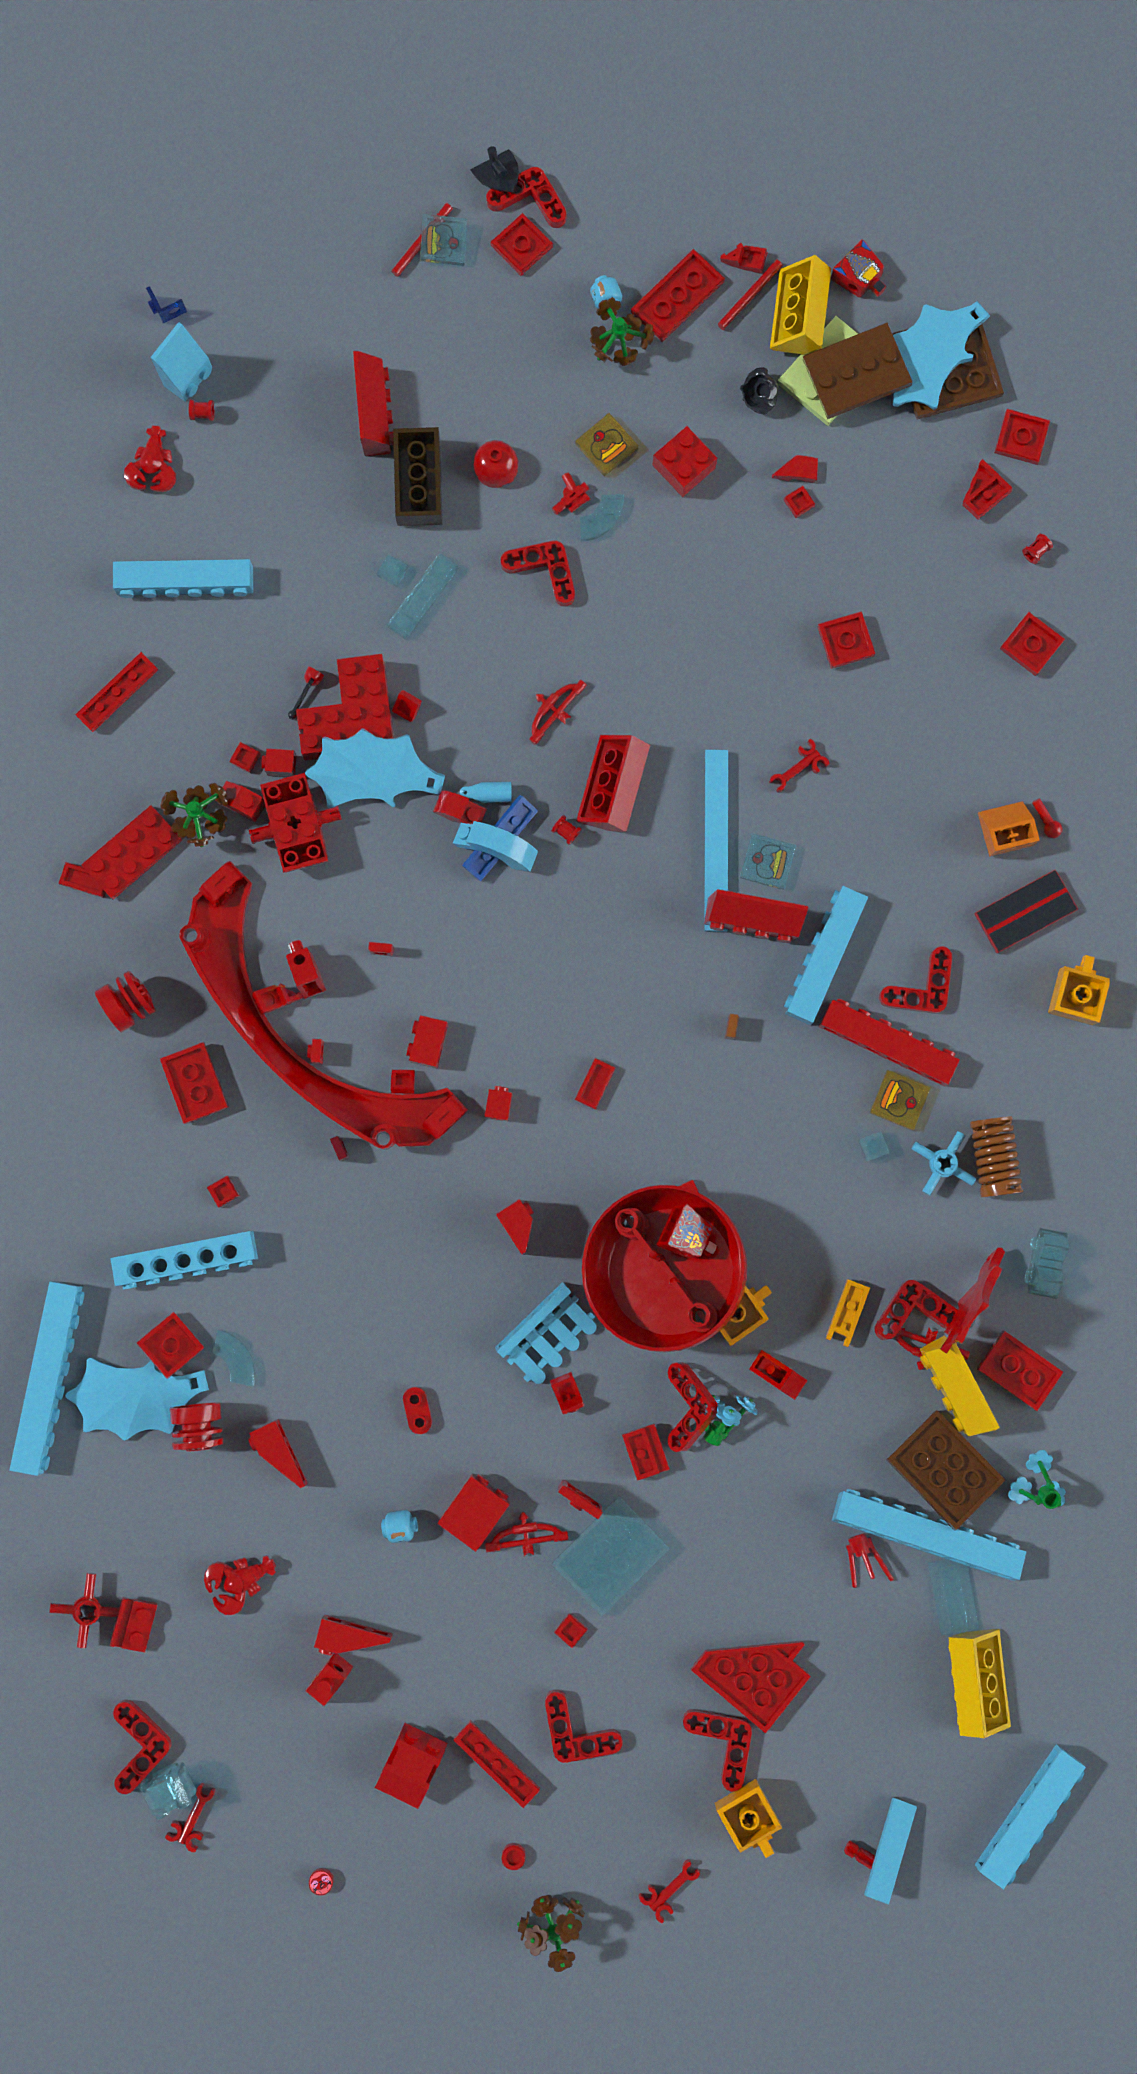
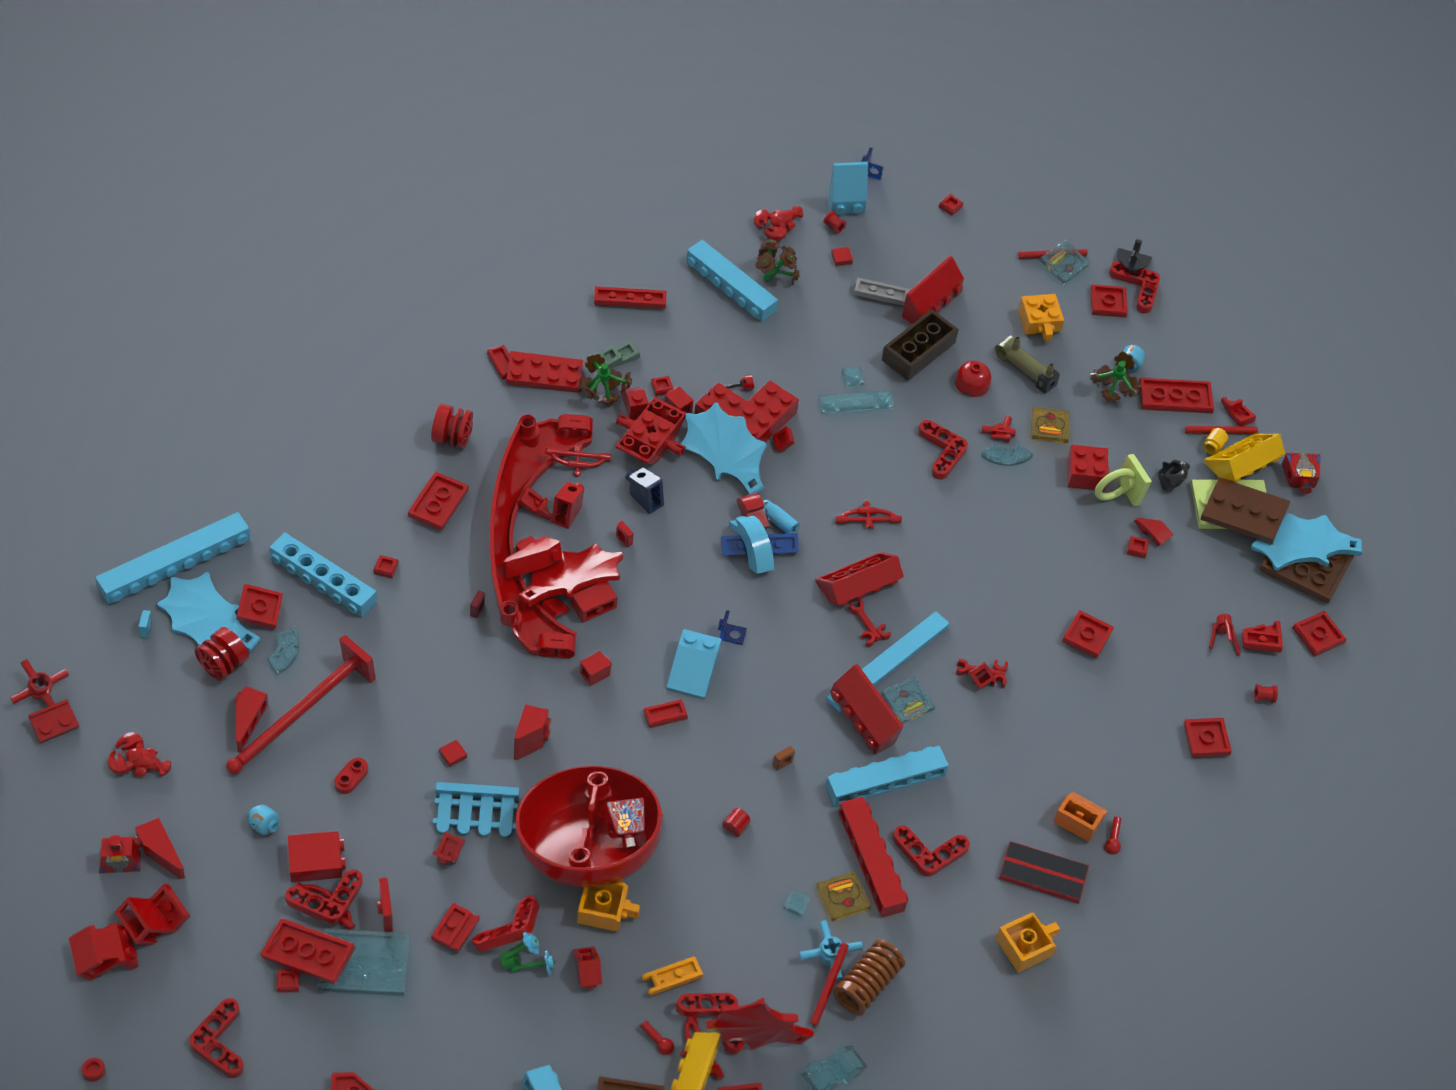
camera: 40 degrees right, 30 degrees down
(99, 1462) = (145, 624): none -> medium azure tile
(173, 765) = (620, 355): none -> sand green slope
(203, 529) = (767, 264): none -> reddish brown plant
(246, 442) = (842, 256): none -> red tile
(255, 909) = (602, 457): none -> red piece
(278, 275) = (951, 204): none -> red tile
(308, 1311) = (354, 658): none -> red piece
(322, 448) = (880, 291): none -> light grey plate
(338, 1055) = (535, 556): none -> red slope
(350, 886) = (646, 489): none -> dark blue torso
(383, 1037) = (572, 574): none -> red animal
(412, 1698) = (152, 916): none -> red piece
(472, 1303) = (453, 753): none -> red tile
(486, 328) = (1041, 315): none -> light orange hinge
(496, 1764) = (151, 1005): red plate -> none
(498, 396) = (1010, 350): none -> olive piece
(535, 1536) = (332, 904): none -> red beam
(557, 951) = (726, 628): none -> clear blue bracket
(564, 1598) = (308, 951): none -> red plate
(566, 829) = (804, 577): red bush -> none
(571, 1015) = (694, 664): none -> medium azure slope
(679, 824) = (872, 633): none -> red bar
(738, 439) = (1132, 482): none -> yellowish green tile
(753, 1124) = (736, 822): none -> red brick
(760, 315) = (1215, 441): none -> yellow brick
(805, 776) = (981, 675): none -> red brick
(899, 1373) = (664, 1045): none -> red bar
(944, 511) = (1225, 626): none -> red plant
(973, 1195) = (829, 984): none -> red bar

